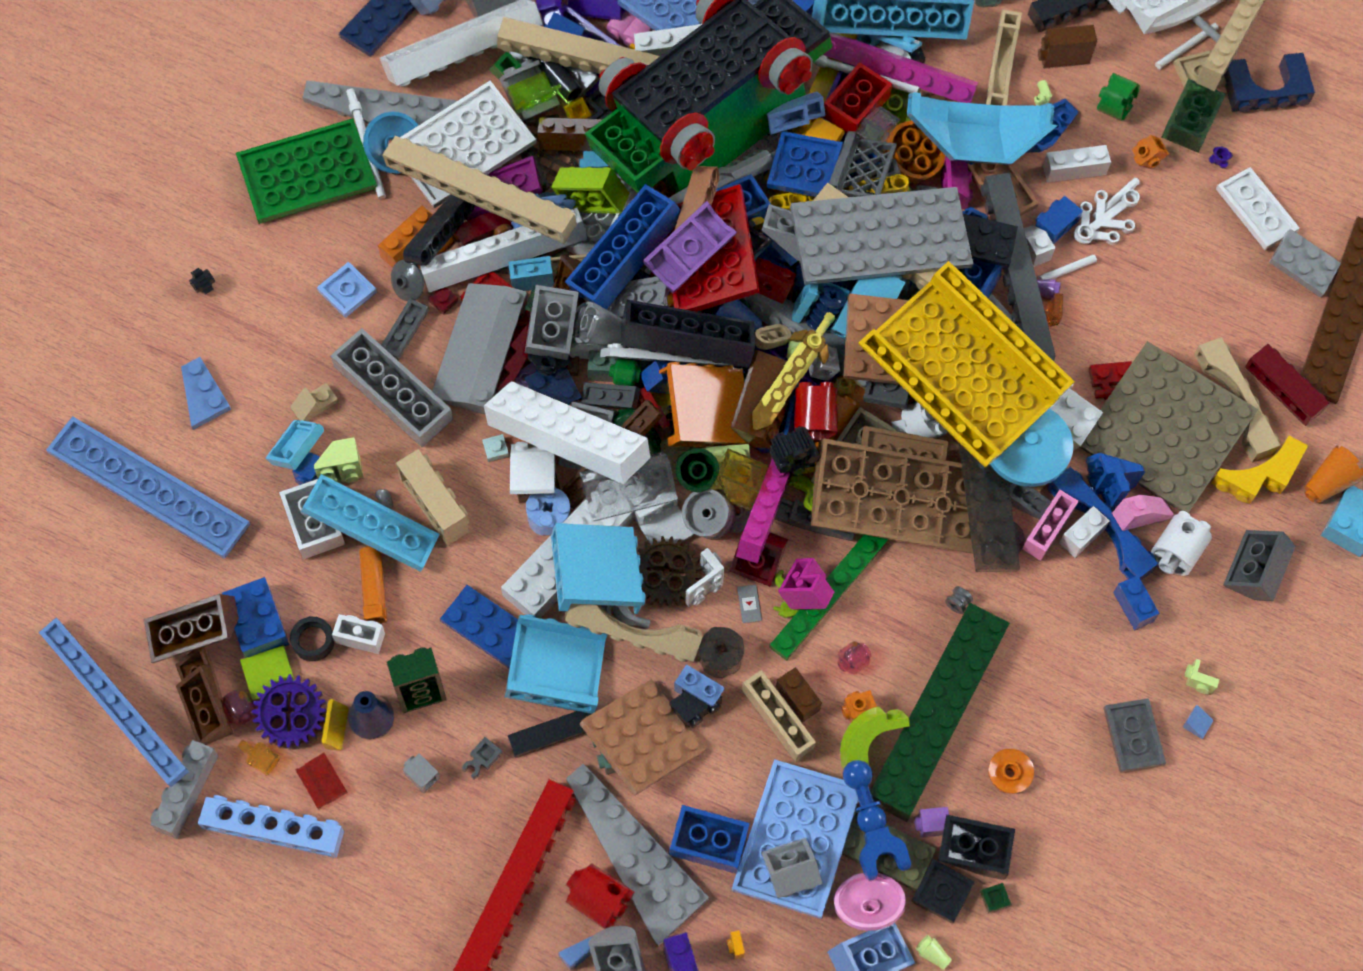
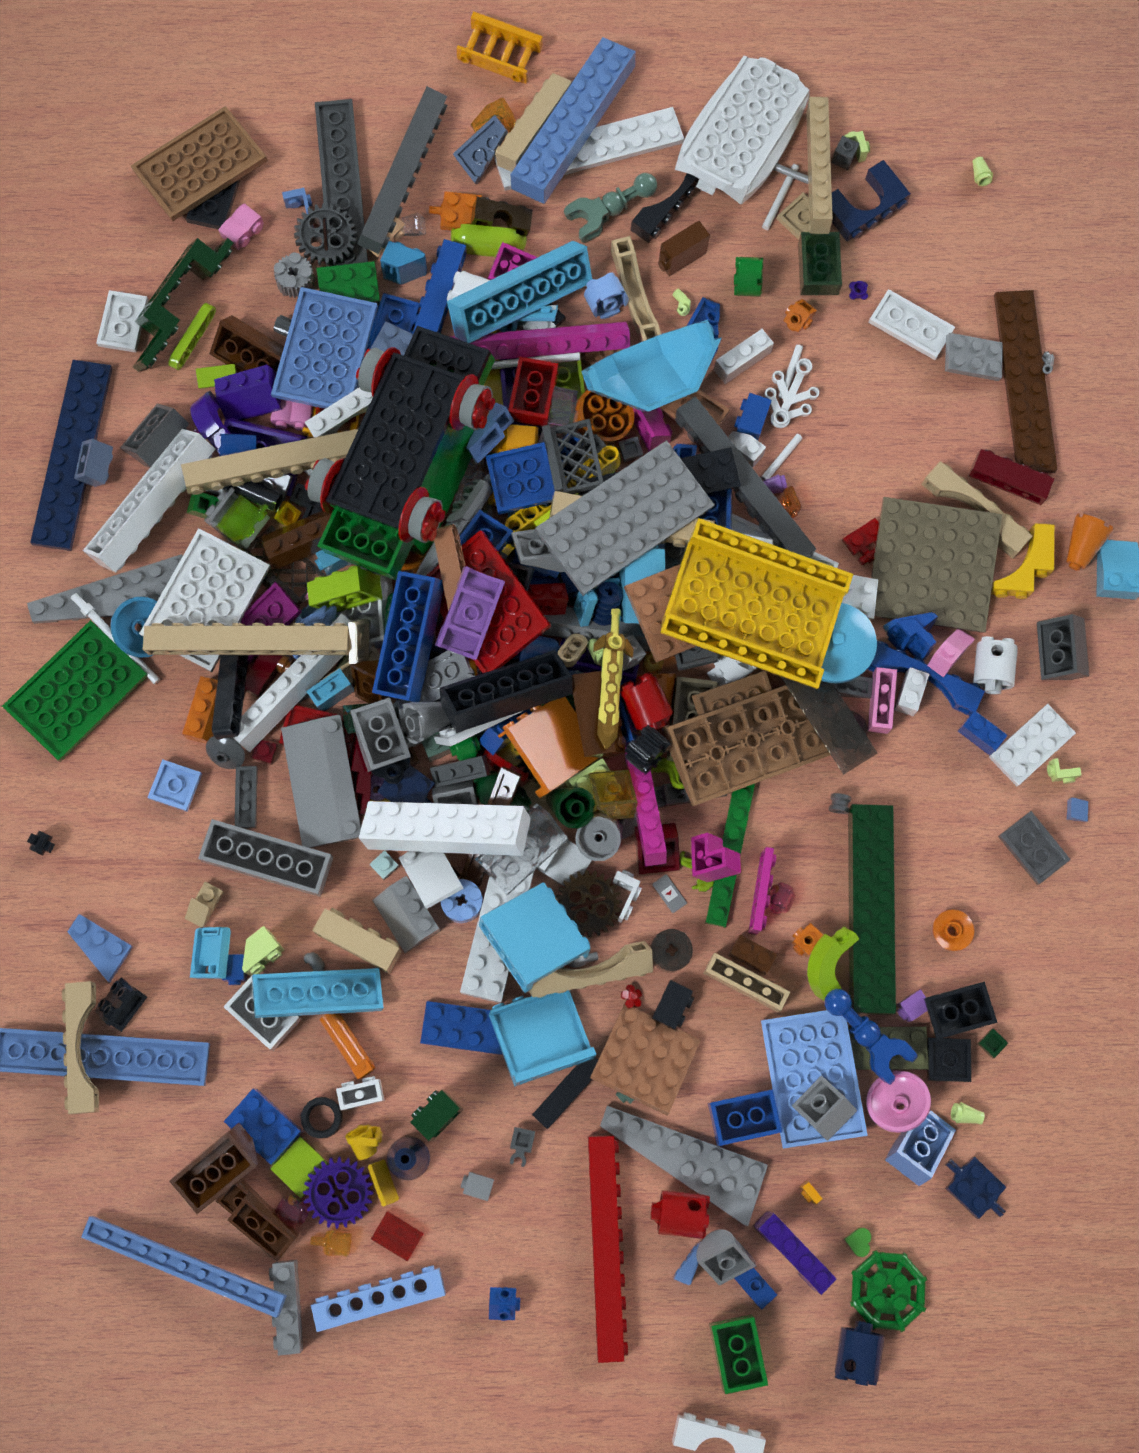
camera: 30 degrees left, 10 degrees up
(156, 427) = (79, 1002): none -> tan arch
(191, 451) = (120, 1004): none -> black bracket
(338, 677) = (363, 1141): none -> yellow piece
(383, 891) = (503, 1303): none -> blue brick
(490, 499) = (406, 914): none -> light grey slope
(579, 236) = (358, 641): none -> tan tile
(661, 677) = (631, 996): none -> red plant
(698, 685) = (669, 991): medium blue bracket -> none
(841, 635) = (761, 899): none -> dark pink plate
(971, 55) = (605, 296): none -> light blue brick
(1182, 640) = (1032, 745): none -> white plate
(1269, 33) = (845, 153): none -> dark grey brick
(1286, 27) = (864, 147): none -> yellowish green bracket

